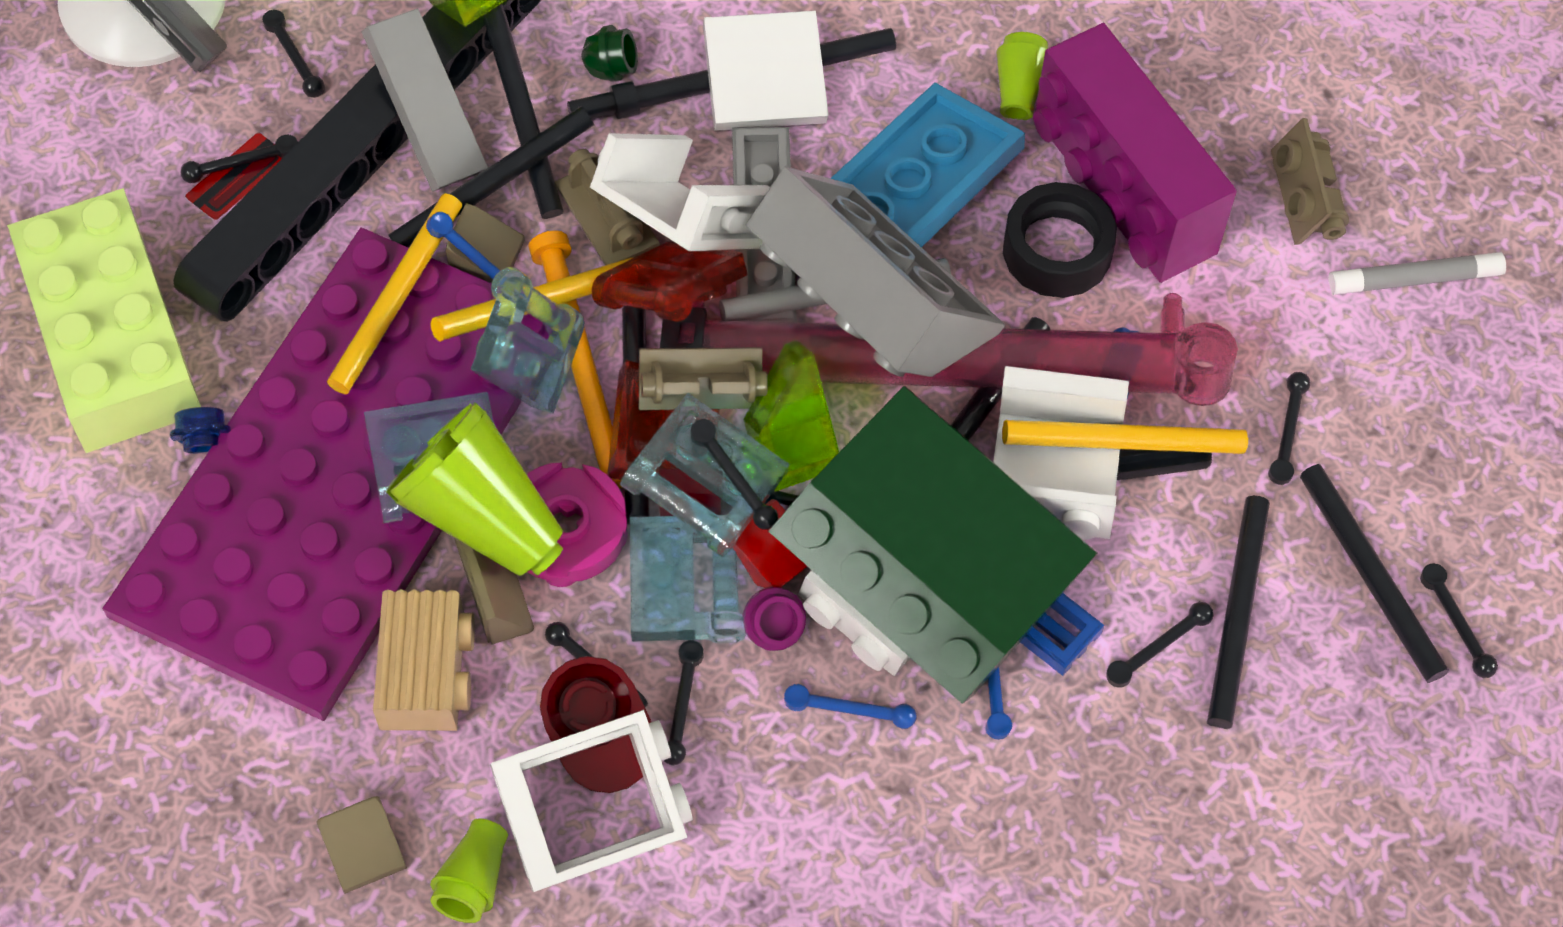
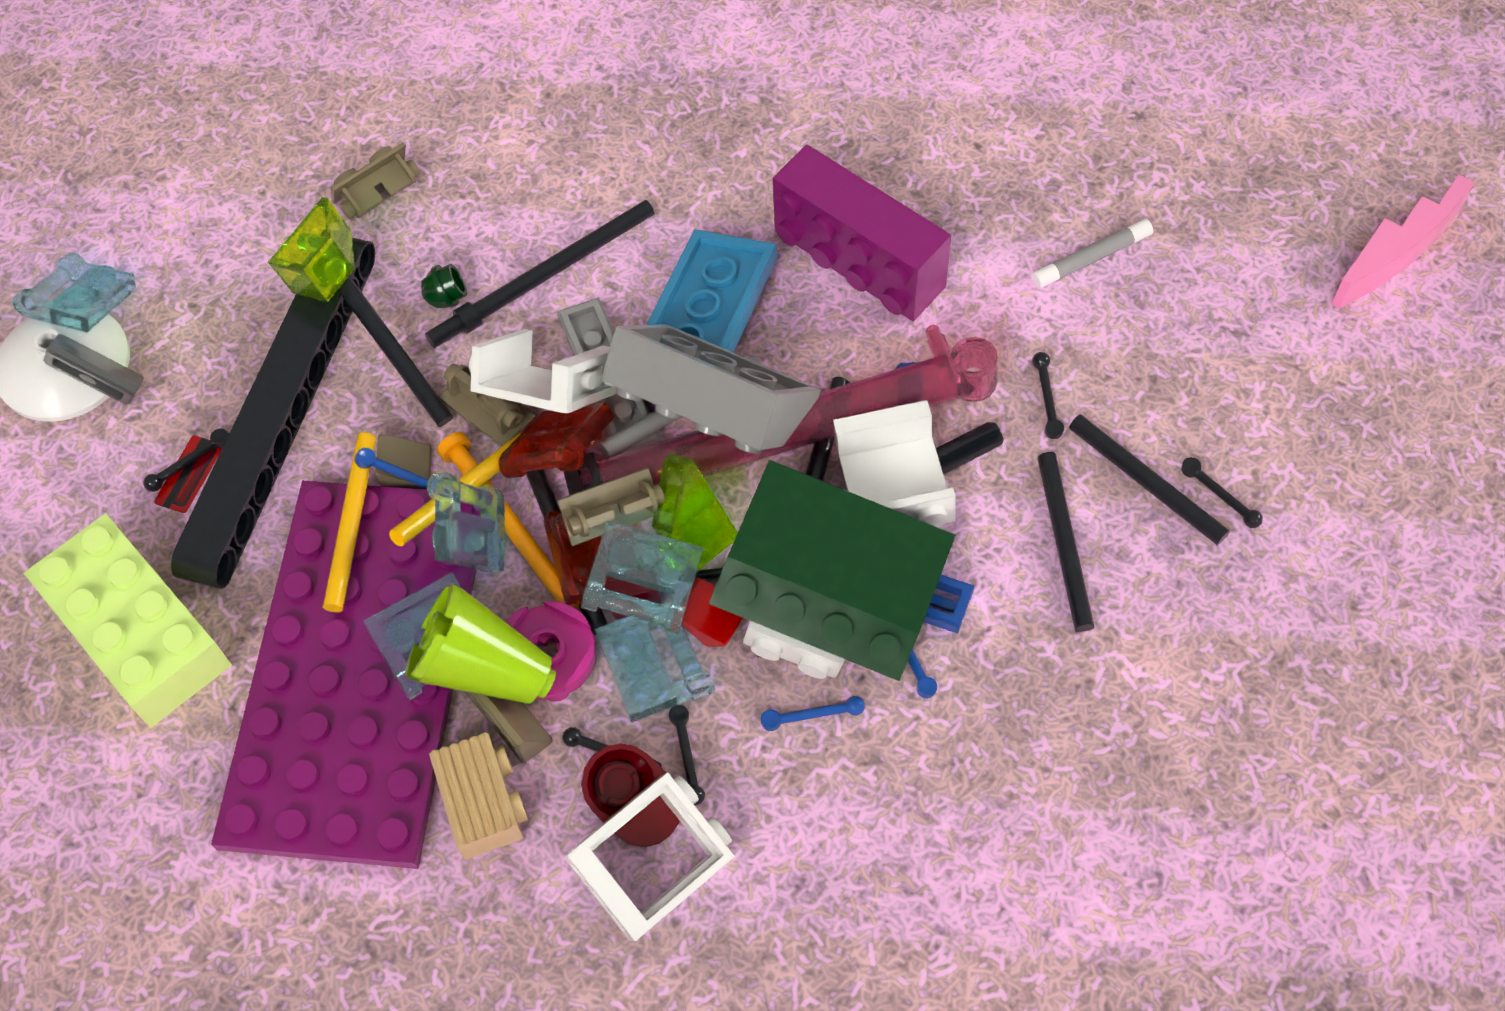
camera: 15 degrees left, 0 degrees up
(199, 428) = (234, 678): clear blue plate -> none
(275, 22) = (174, 346): black hinge -> none
(361, 844) = (485, 953): dark tan slope -> none
(424, 99) = (316, 367): light grey tile -> none
(470, 874) = (578, 946): lime cone -> none
(505, 169) = (397, 401): black bar -> none
(703, 435) = (632, 548): black hinge -> none
(765, 70) = (565, 261): white tile -> none
(774, 618) = (732, 667): magenta plate -> none
(1019, 73) = (754, 200): lime cone -> none
(1051, 276) = (823, 342): black tyre -> none
(1120, 672) = (999, 616): black hinge -> none
(1124, 436) = (936, 442): yellow bar -> none
(1303, 170) = (987, 213): dark tan hinge -> none

